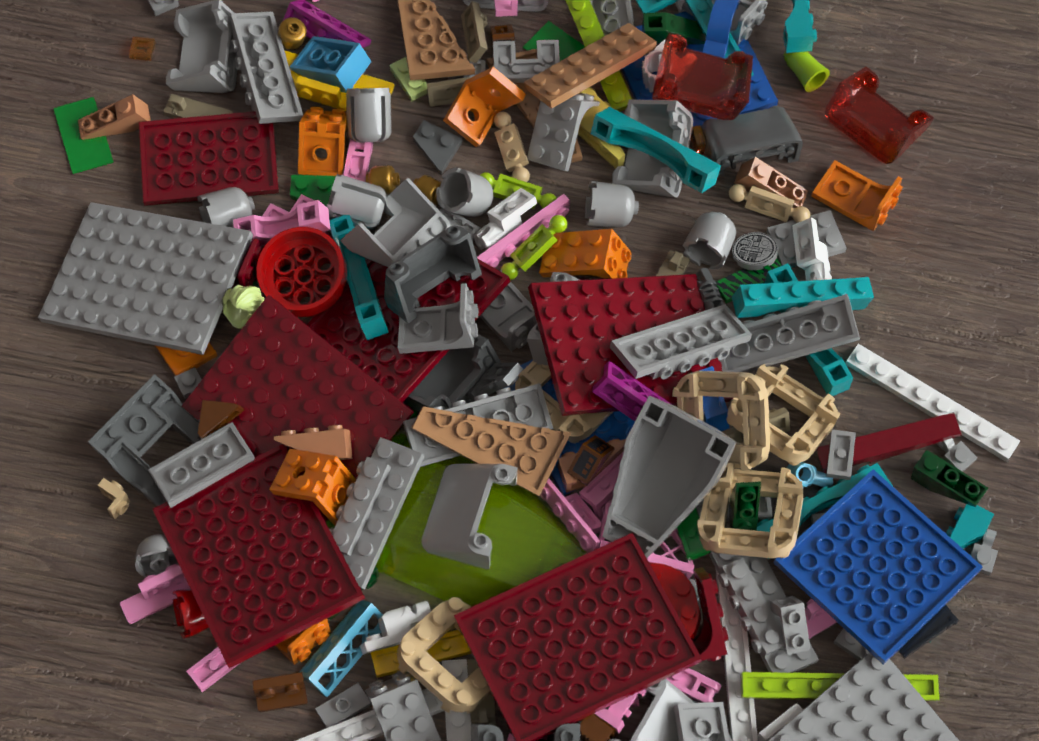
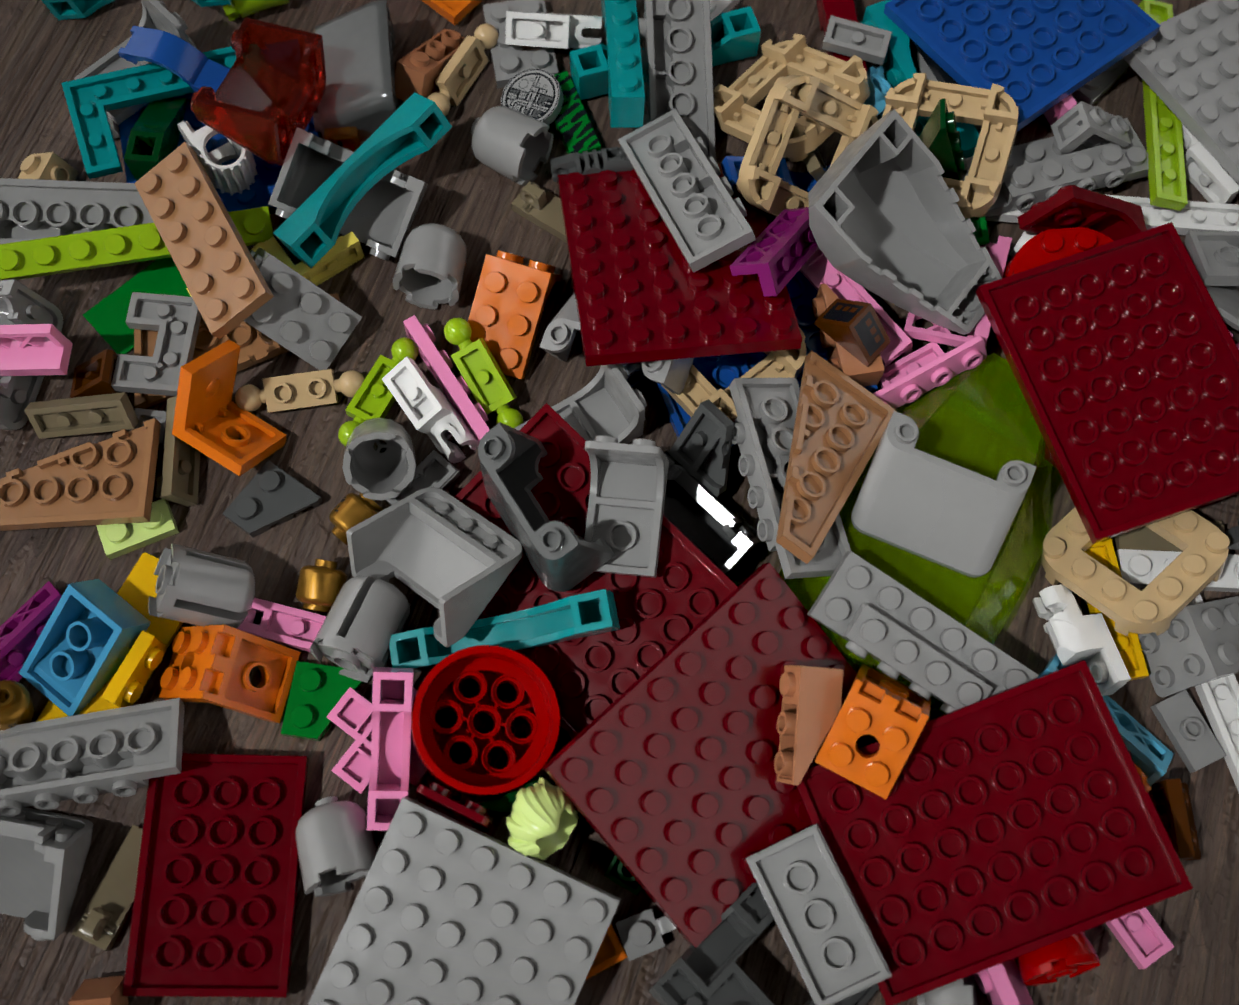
camera: 85 degrees left, 5 degrees up
(216, 415) = (735, 881): reddish brown slope -> none

